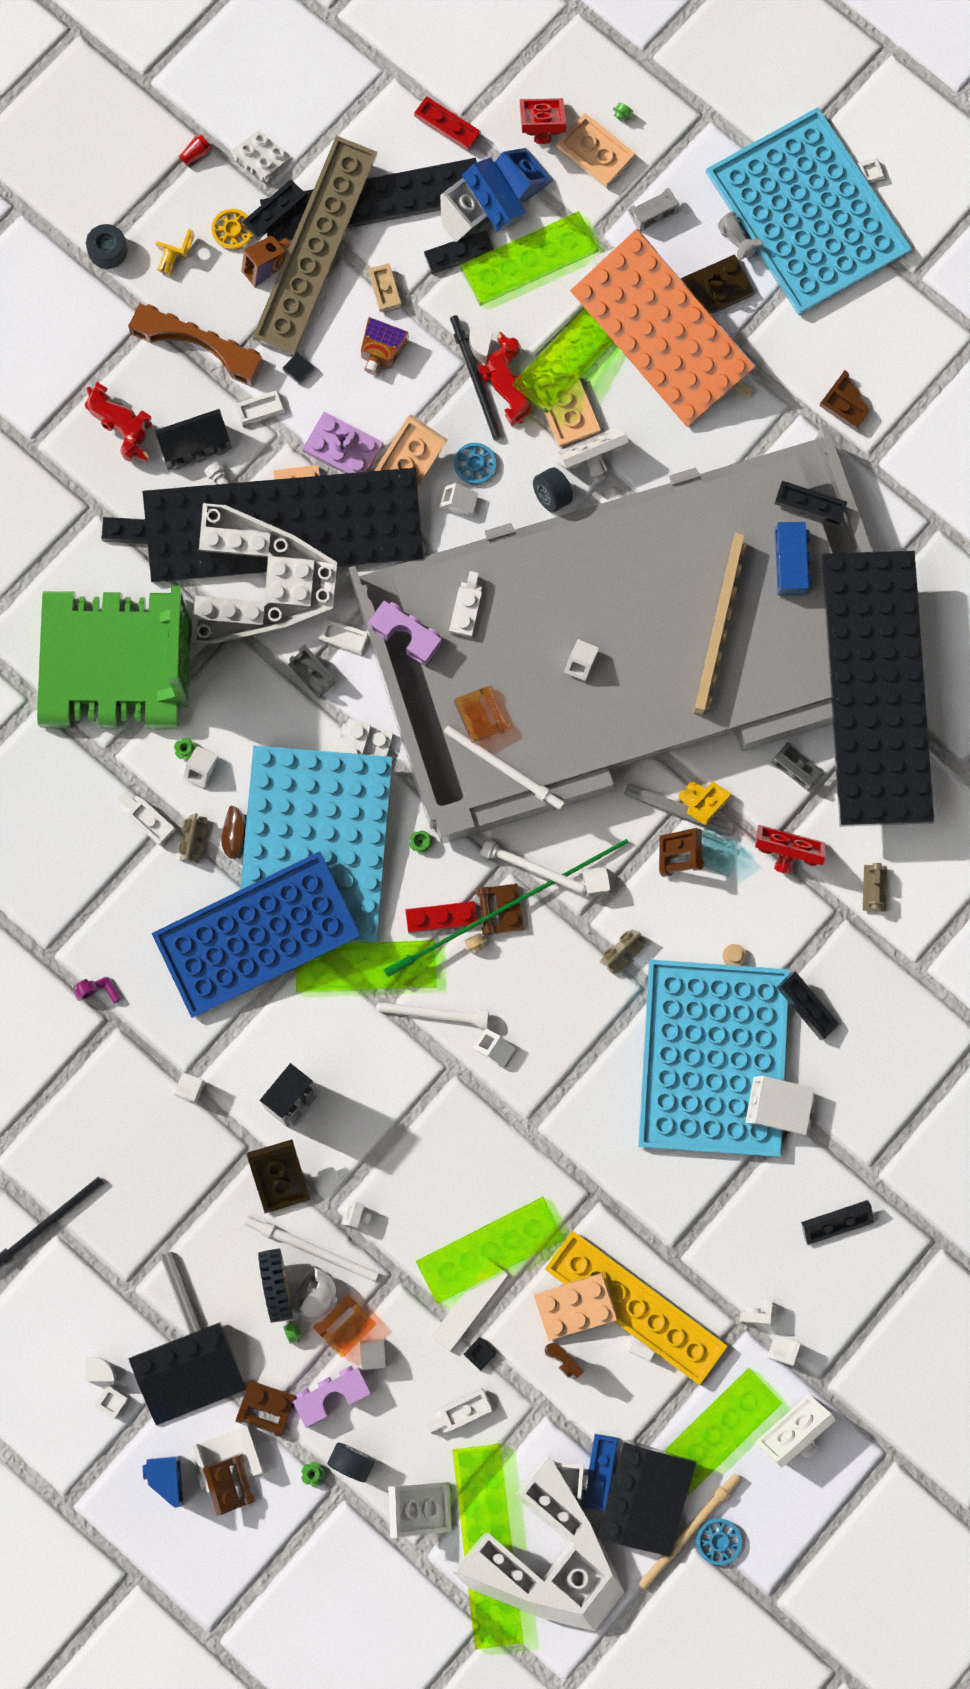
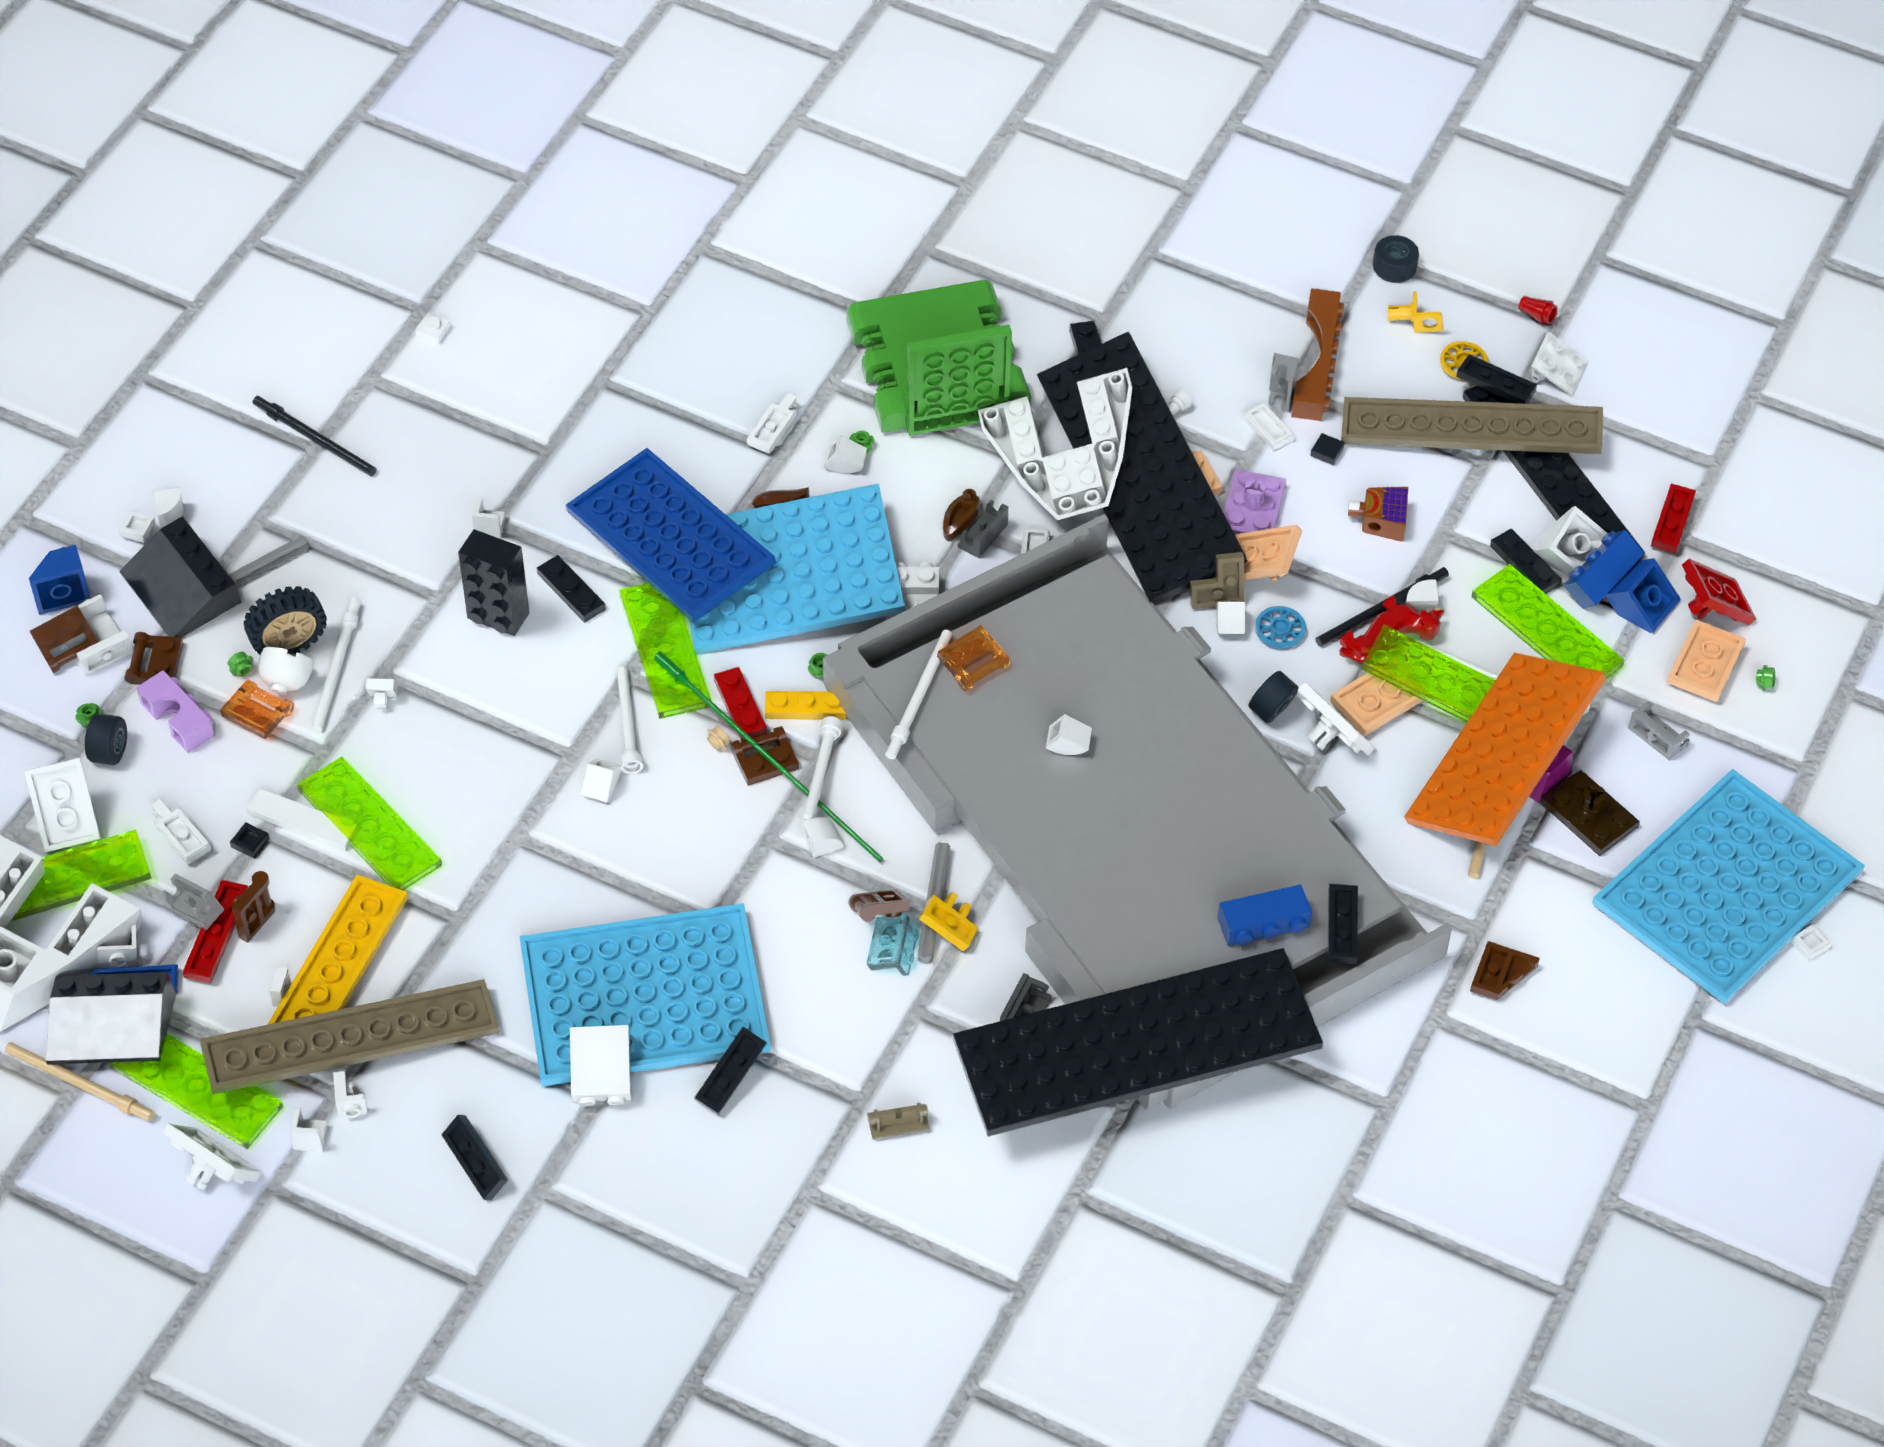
camera: 80 degrees right, 25 degrees down
(86, 988) = (573, 414): magenta plate -> none
(121, 420) = (1207, 306): red animal -> none
(193, 439) = (1206, 368): black slope -> none
(194, 829) = (773, 465): dark tan hinge -> none
(227, 377) = (1283, 379): none -> light grey hinge
(264, 259) = (1436, 382): dark orange torso -> none
(278, 1176) = (407, 605): dark brown plate -> none
(280, 1032) = (571, 588): none -> black plate
(289, 686) = (960, 514): none -> reddish brown arm
(372, 1354) = (228, 739): light grey brick -> none
(384, 287) = (1452, 502): tan plate -> none
(390, 619) = (1038, 587): lavender arch -> none
(430, 491) = (1226, 587): none -> dark tan plate
(456, 867) = (802, 705): none -> yellow plate
(466, 607) = (1096, 622): white hinge -> none
(544, 1410) = (193, 902): none -> light grey hinge
(570, 1396) = (212, 942): none -> red plate
(575, 1306) = (319, 911): light nougat plate -> none
(629, 943) = (757, 883): dark tan hinge -> none
(708, 1303) = (348, 1036): none -> dark tan plate
(718, 633) = (1158, 858): tan plate -> none
(719, 1541) = (71, 1113): dark azure wheel -> none
(730, 227) = (1670, 808): light grey animal -> none
(734, 955) = (773, 991): tan plate -> none
(789, 848) = (919, 1011): red plate -> none

